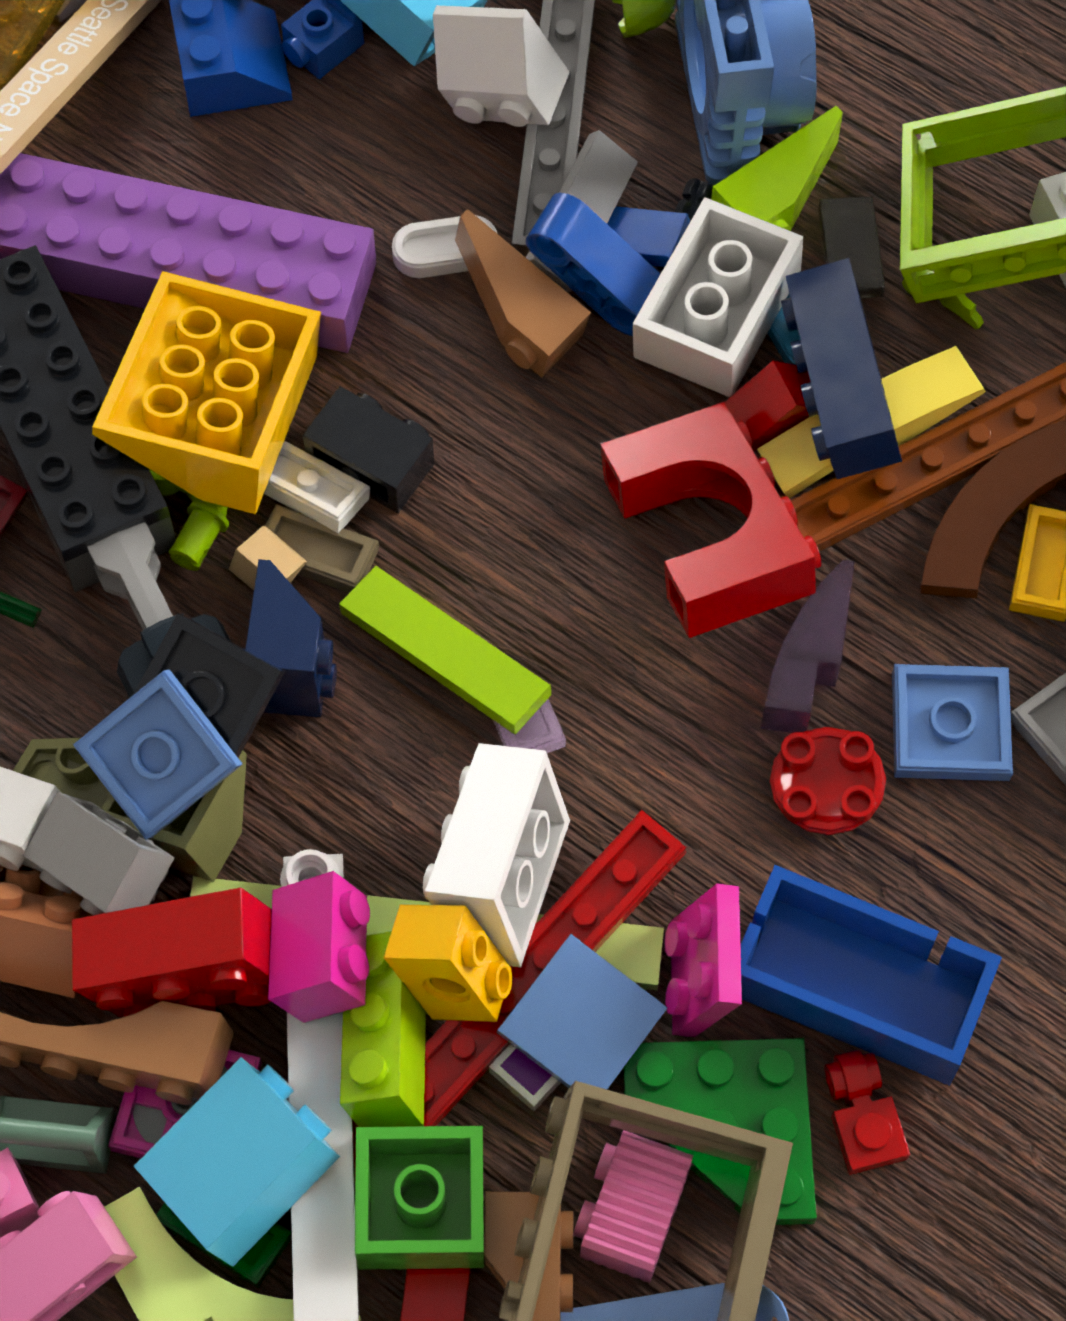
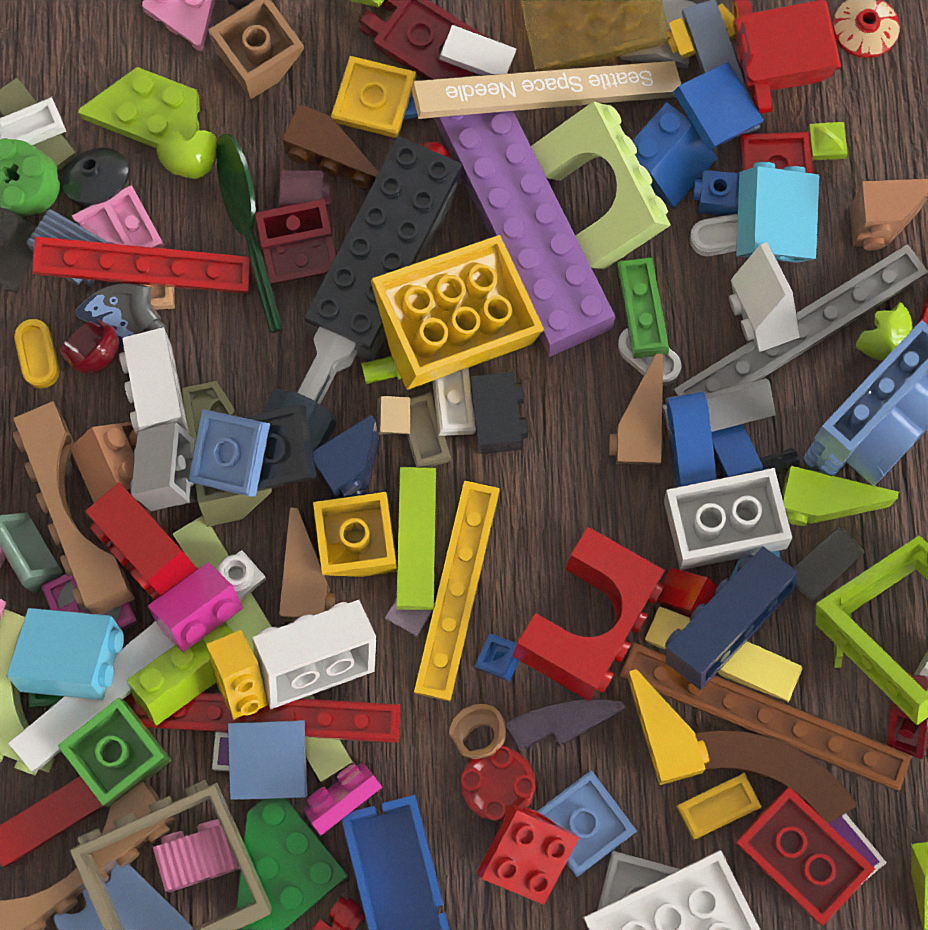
camera: 55 degrees right, 10 degrees up
(138, 89) = (636, 210): none -> yellowish green arch
(368, 75) = (715, 235): none -> white tile
(381, 811) = (303, 584): none -> medium nougat slope
(384, 205) = (642, 308): none -> bright green tile
(384, 706) = (355, 536): none -> yellow slope
(552, 652) = (457, 591): none -> yellow plate
(672, 665) = (497, 657): none -> blue tile
(731, 734) = (471, 718): none -> medium nougat piece
(923, 541) = (668, 737): none -> yellow slope
(948, 798) = (527, 854): none -> plate

